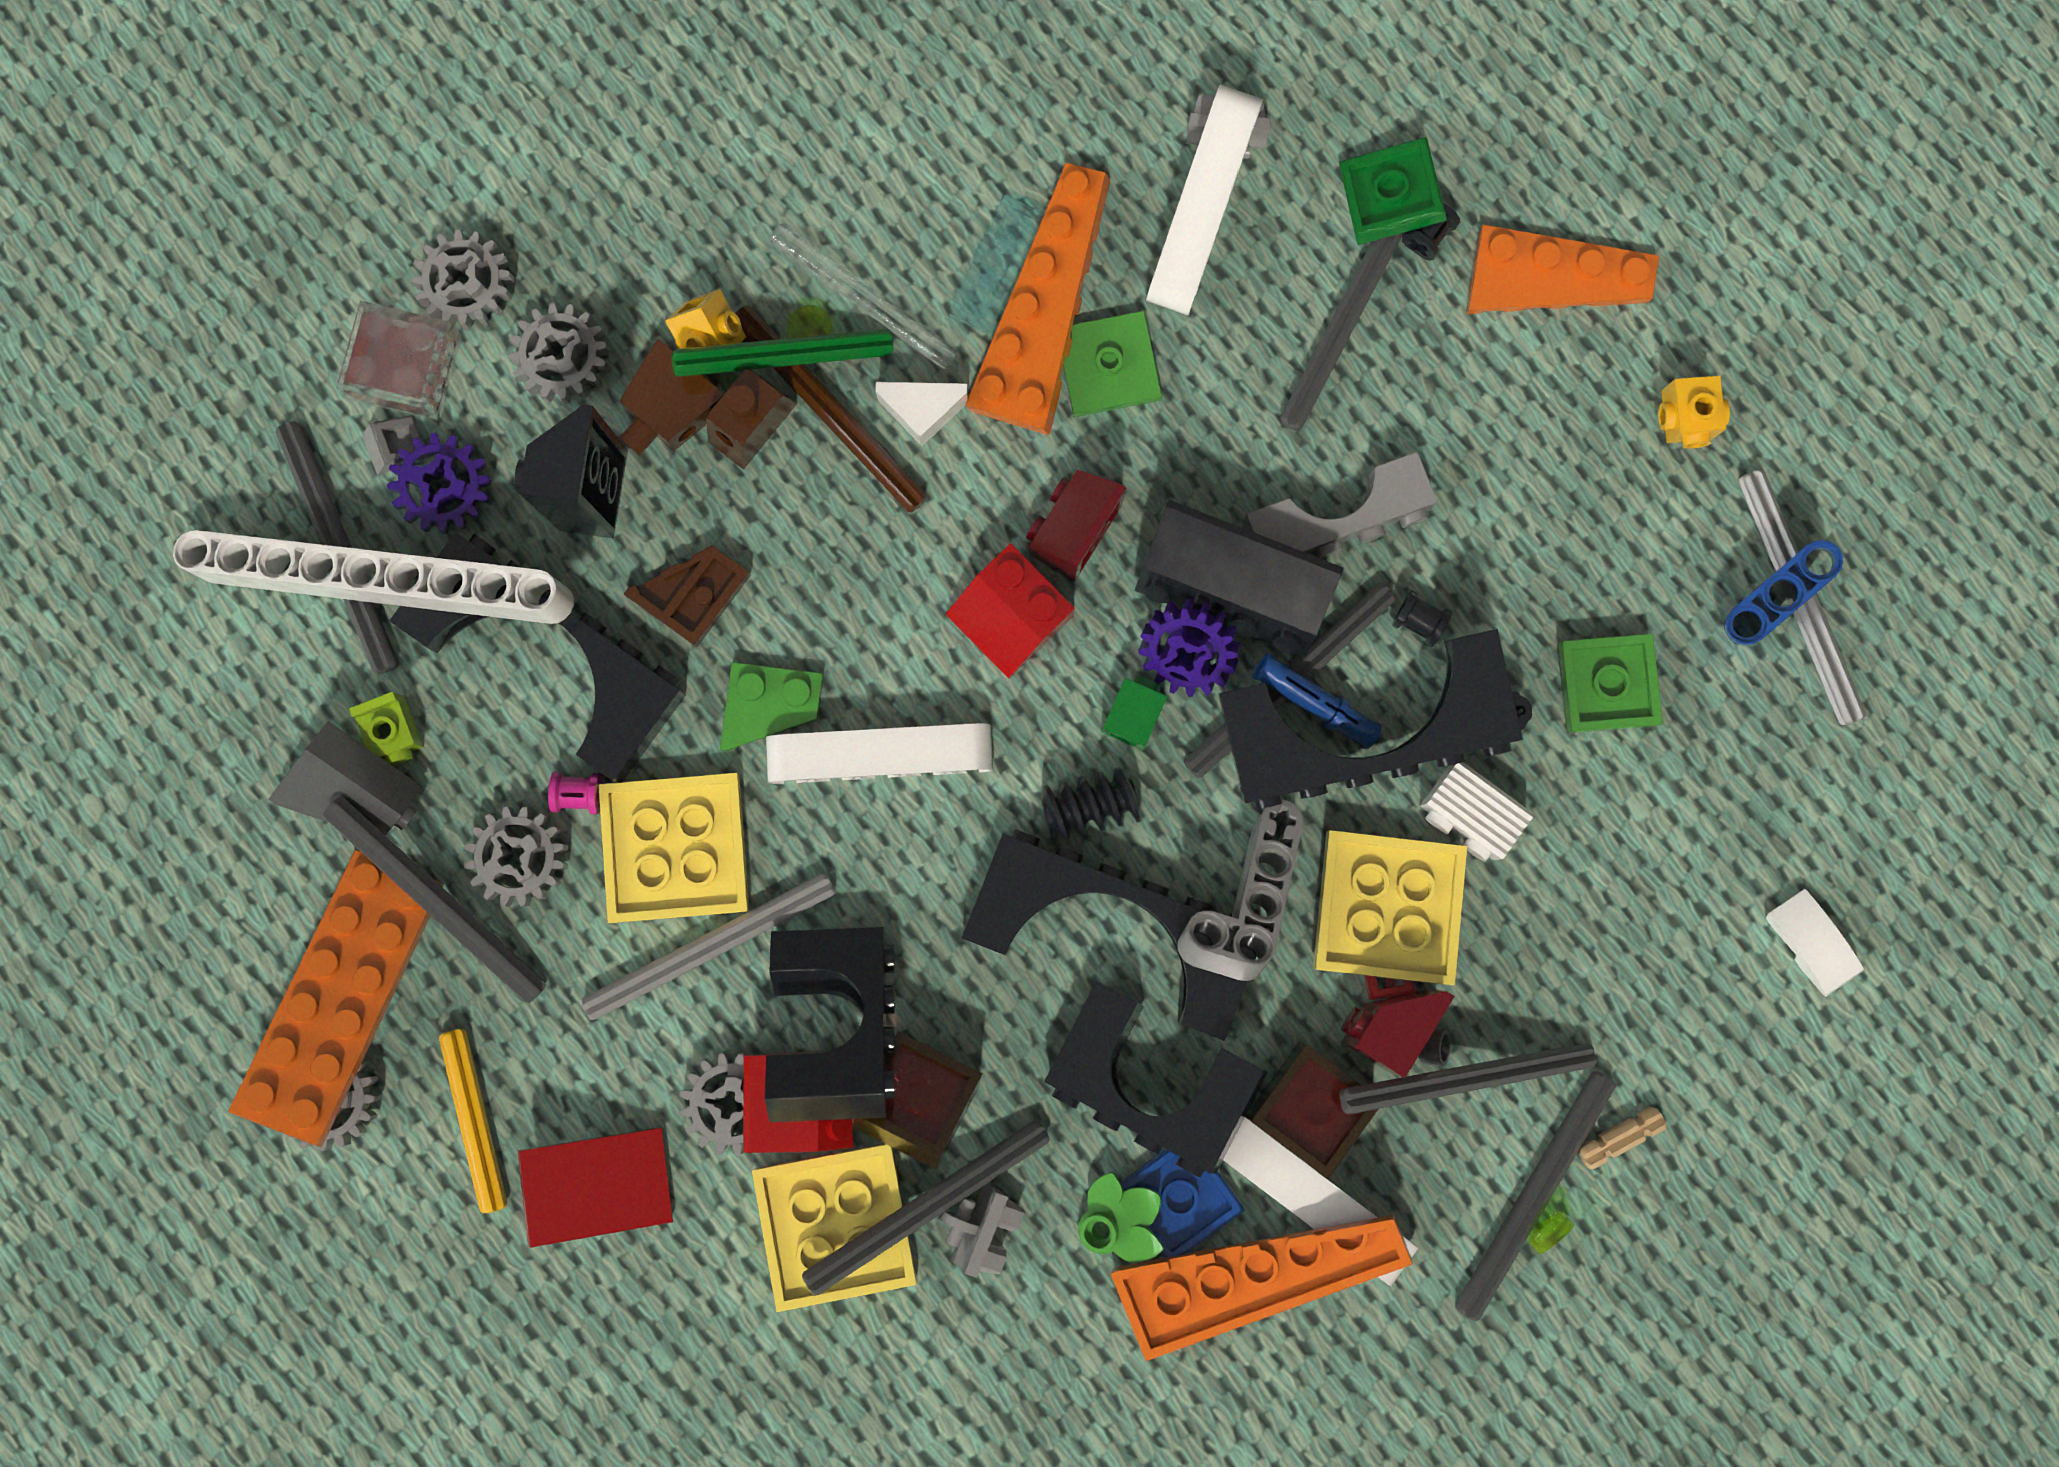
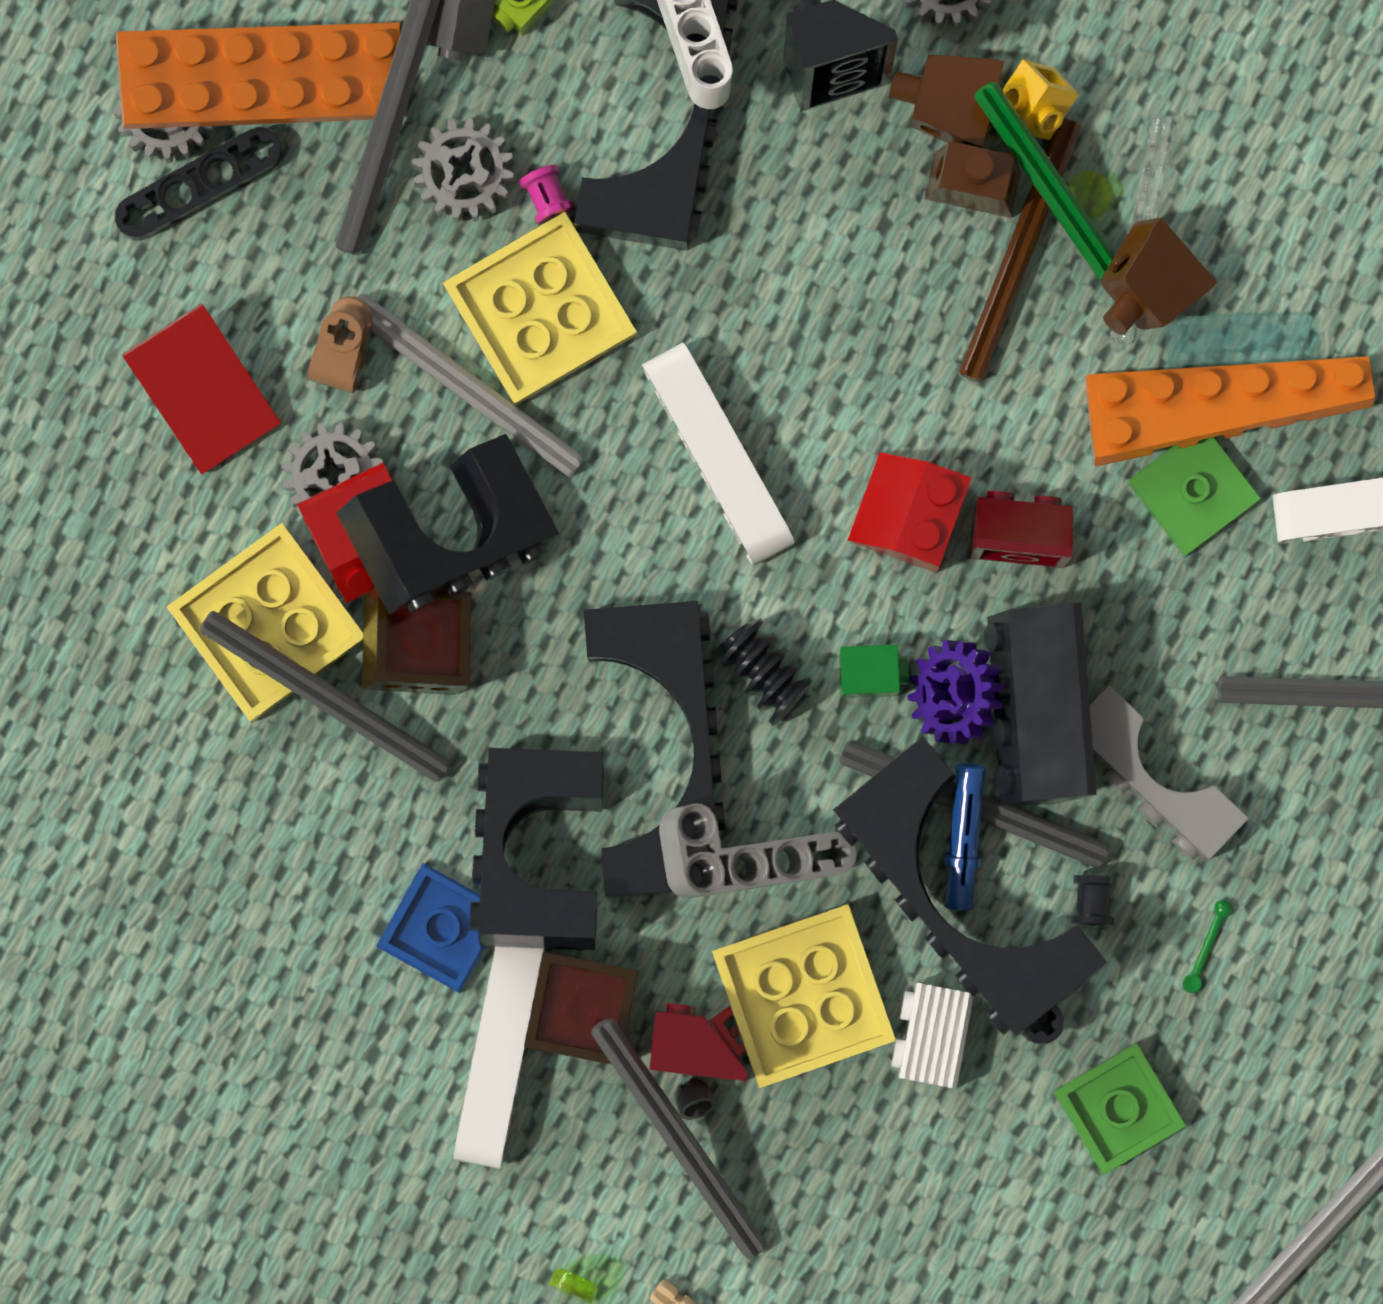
camera: 70 degrees right, 0 degrees up
(400, 1099) = (202, 191): none -> black beam
(473, 1121) = (206, 250): yellow axle -> none
(622, 1041) = (339, 348): none -> medium nougat piece
(692, 593) = (782, 209): reddish brown wing -> none
(767, 702) = (715, 329): bright green wing -> none
(911, 305) = (1152, 278): none -> reddish brown torso
(922, 406) = (1063, 335): white slope -> none
(975, 1227) = (307, 758): light grey hips -> none
(1127, 1216) = (401, 885): bright green plate -> none
(1227, 1287) = (377, 1000): orange wing -> none
(1527, 570) = (1192, 982): none -> green hinge
(1535, 1196) = (601, 1259): dark grey axle -> none
(1795, 573) = (1266, 1213): blue beam -> none

